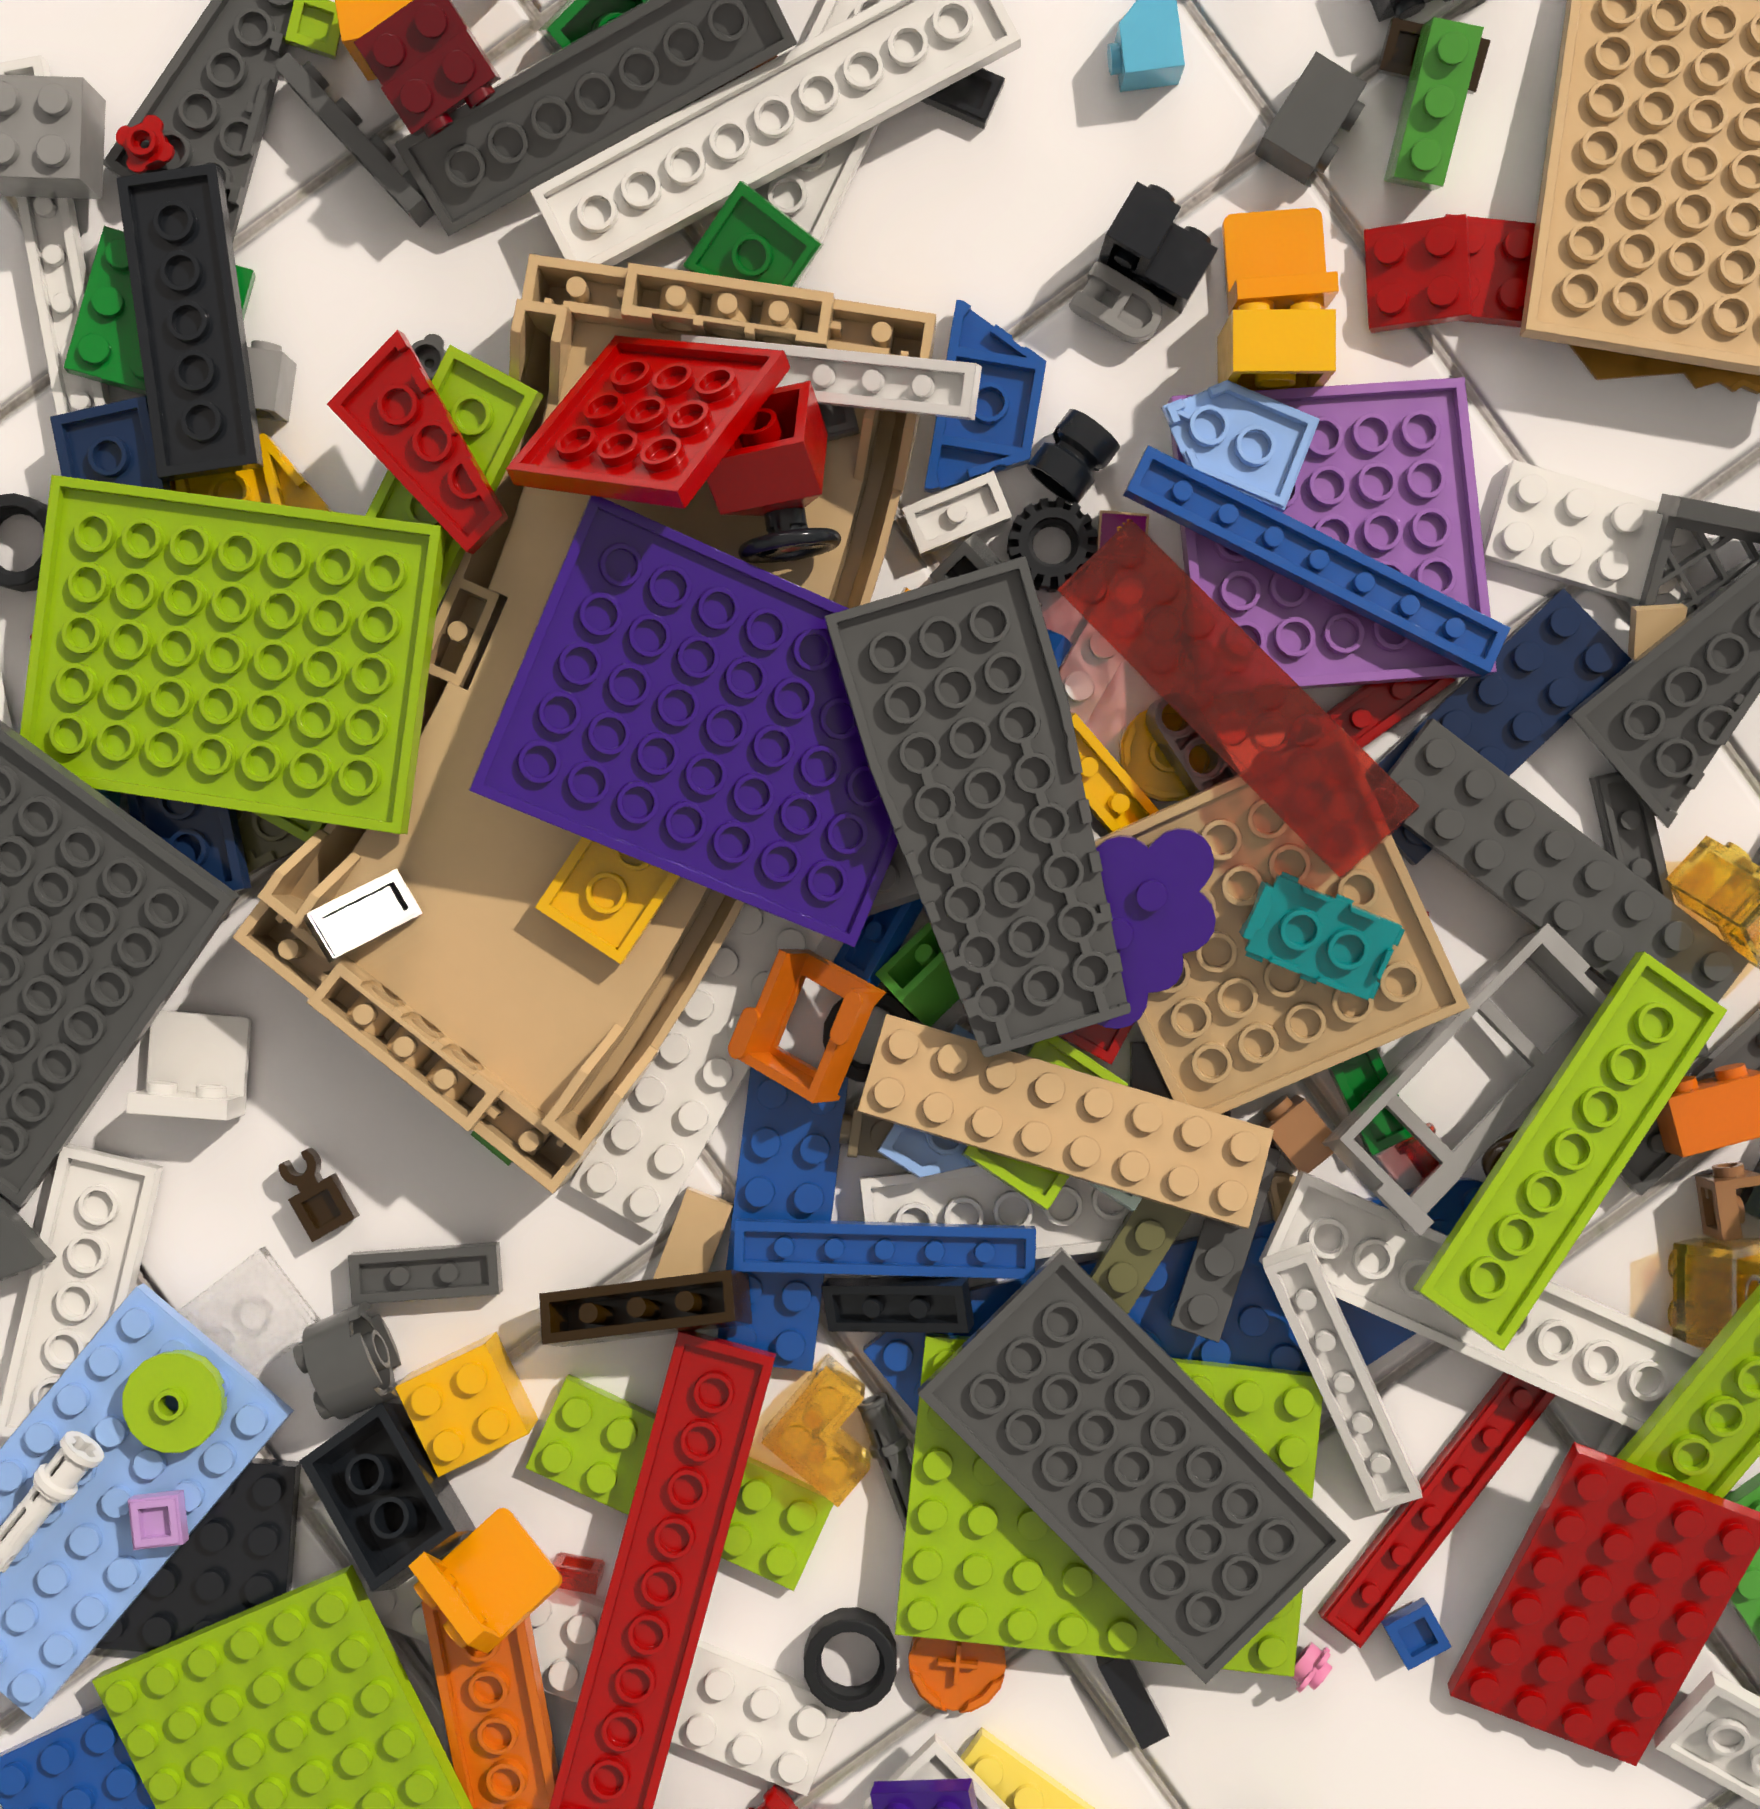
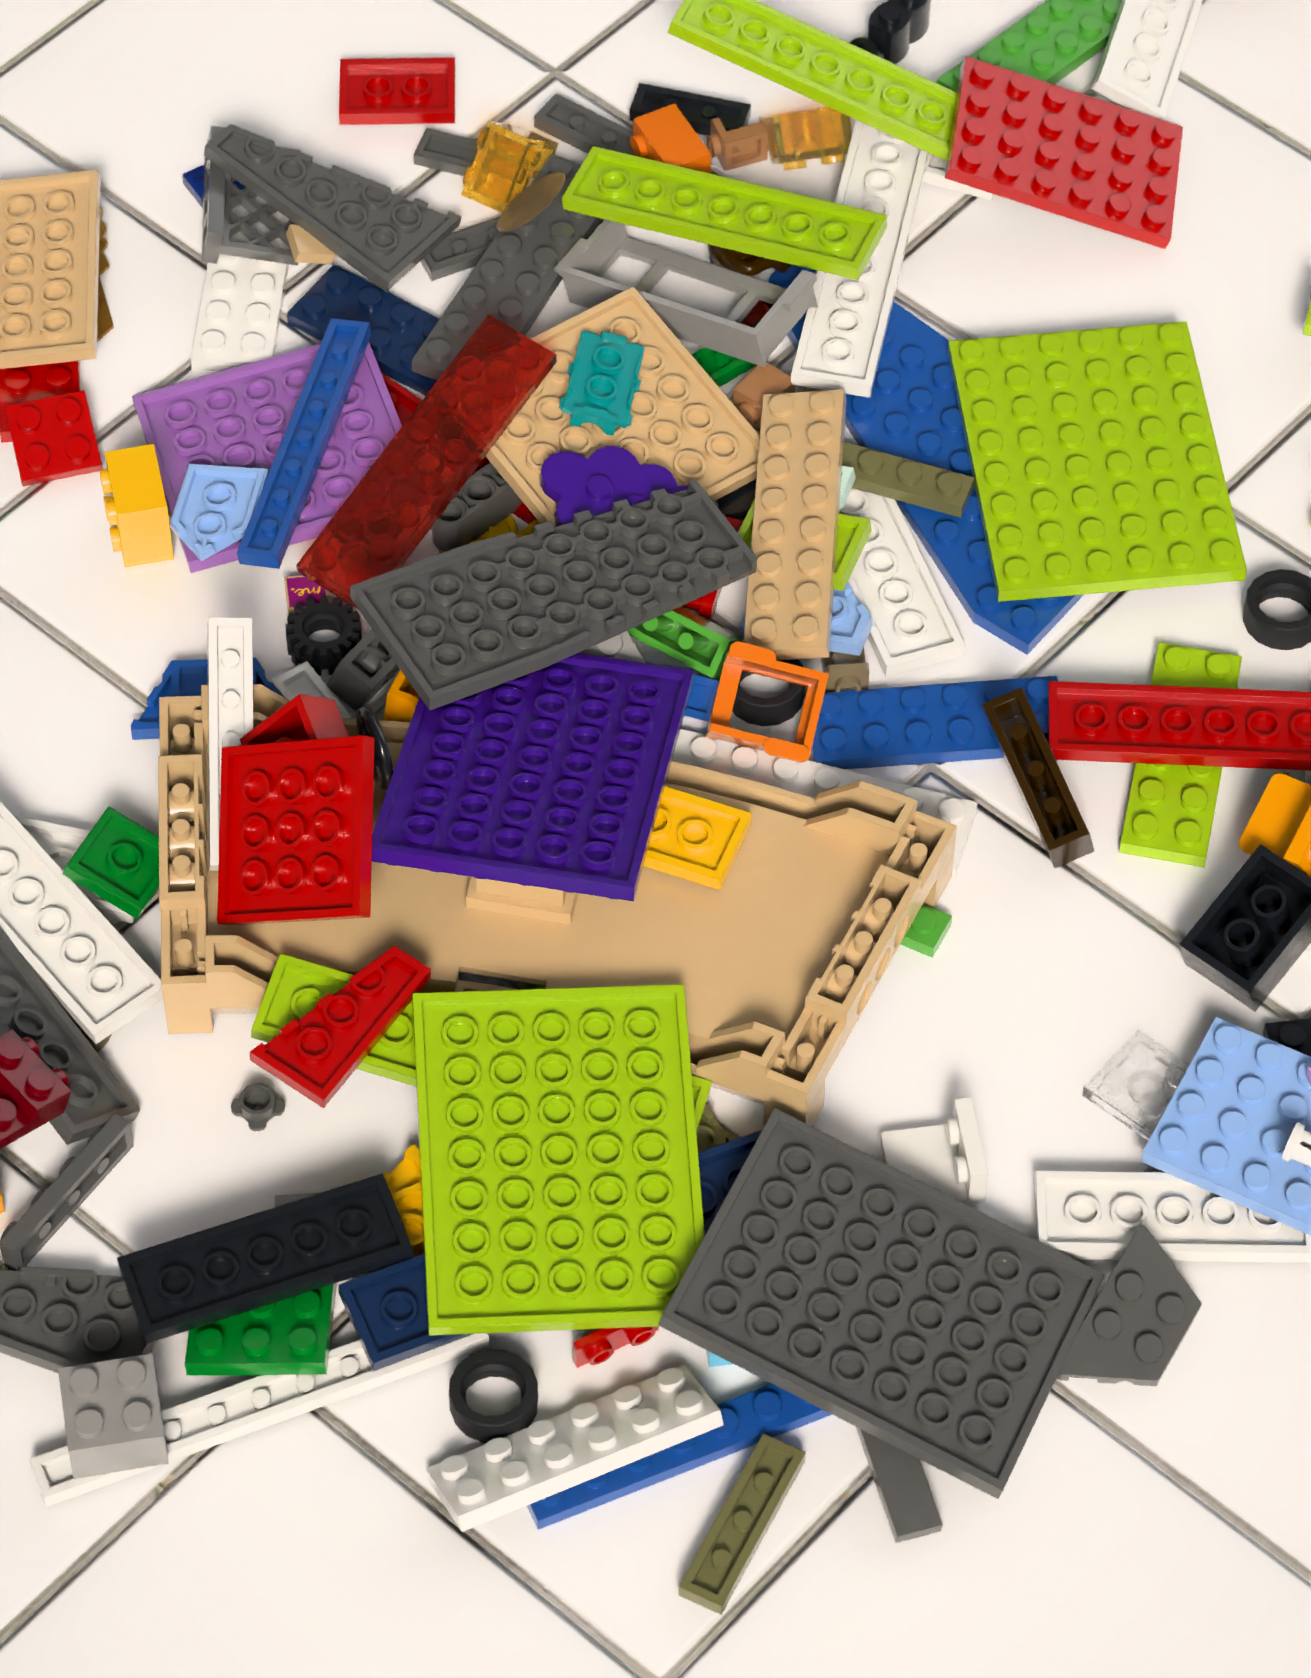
camera: 100 degrees left, 35 degrees down
(150, 158) = (105, 1329): red plate -> none
(199, 1397) = (1223, 1105): lime plate -> none
(321, 1202) = (1025, 1047): dark brown plate -> none
(349, 1362) = (1153, 980): dark grey brick -> none
(362, 915) = (761, 998): tile -> none
(425, 1273) = (1064, 959): dark grey plate -> none
(467, 1404) = (1159, 899): yellow brick -> none
(694, 1235) = (975, 779): tan tile -> none
(809, 1432) = (1103, 657): clear yellow brick -> none
(884, 1248) = (937, 632): blue plate -> none
(888, 1448) = (1079, 626): dark grey pin -> none
(898, 1305) = (980, 618): black plate -> none
(956, 1672) = (1268, 542): orange tile -> none
(1078, 450) = (267, 624): black wheel -> none
(1133, 315) = (116, 614): light grey plate -> none
(1133, 1465) = (1051, 433): dark grey plate -> none
(1133, 1700) = (1246, 427): black piece -> none
(1155, 250) = (64, 603): black brick -> none
(1218, 1268) = (893, 422): dark grey plate -> none
(1277, 259) = (62, 530): light orange bracket -> none
(1311, 1667) = (1180, 314): bright pink plate -> none
(1342, 1376) = (943, 327): white plate -> none
(1415, 1633) = (1130, 266): blue plate -> none
(1447, 1494) = (1027, 274): red tile -> none
(1654, 914) = (531, 201): none -> dark tan sticker

